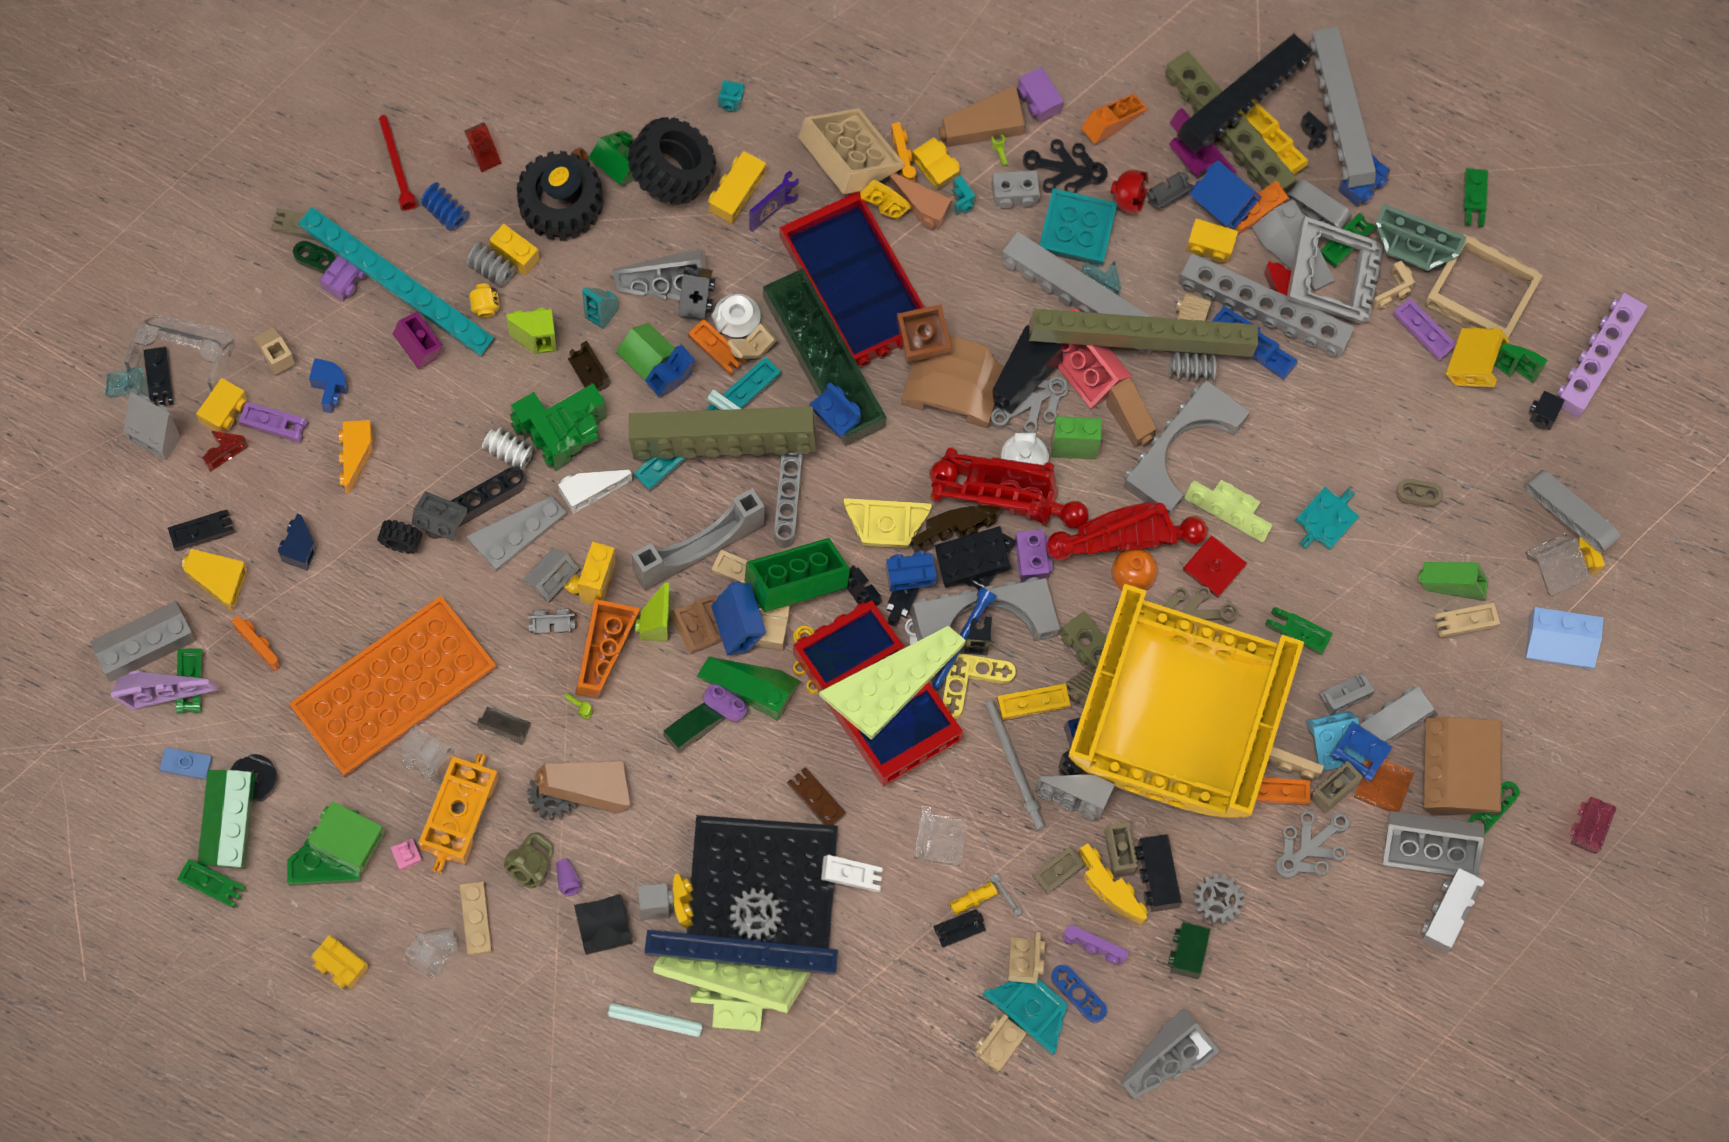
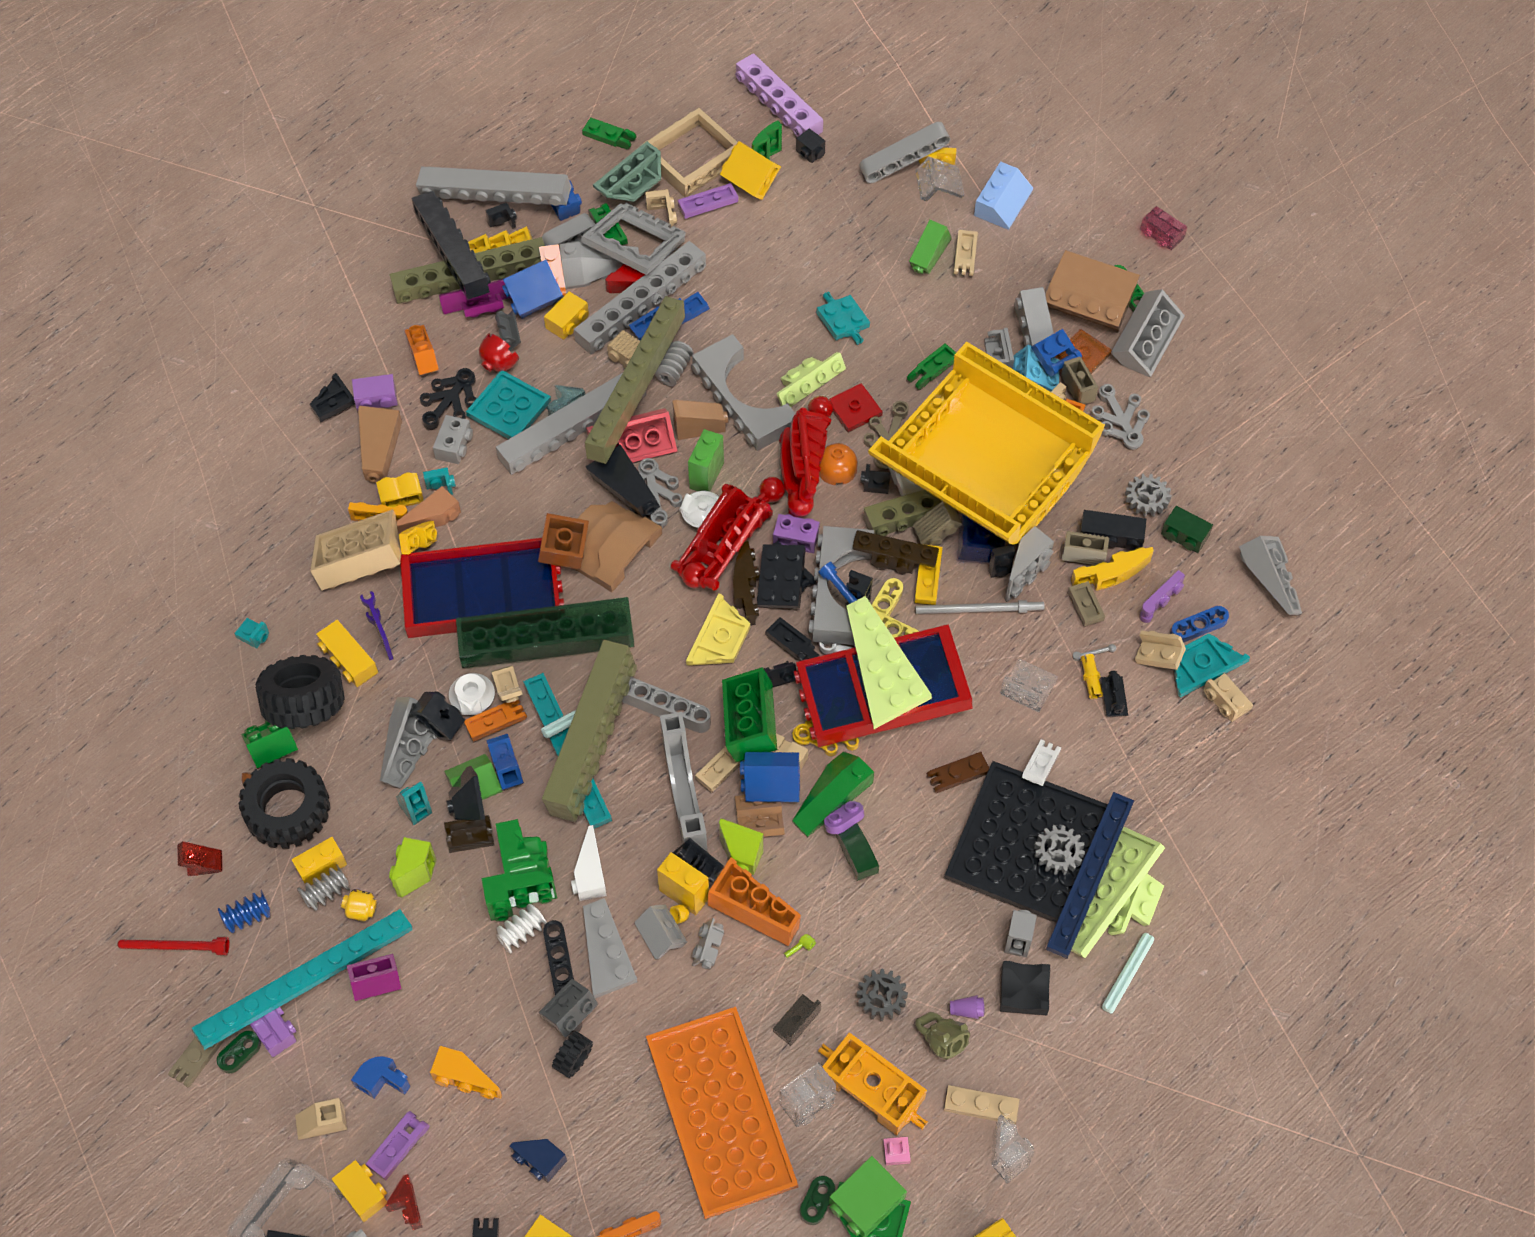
camera: 65 degrees left, 10 degrees down
(337, 794) = (817, 1201): none -> dark green plate
(561, 179) = (277, 786): black wheel -> none
(586, 783) = (887, 955): medium nougat slope -> none
(617, 351) = (466, 797): none -> black slope
(623, 568) = (699, 859): none -> black hinge
(682, 895) = (1017, 903): yellow slope -> none
(836, 410) = (608, 627): blue bracket -> none
(910, 571) = (779, 625): blue brick -> none
(999, 146) = (404, 441): lime hand -> none
(1019, 58) = (332, 399): none -> black wing
(1042, 657) = (894, 552): none -> dark brown bracket
(1418, 492) = (843, 252): dark tan plate -> none
(1451, 910) = (1206, 338): wedge -> none

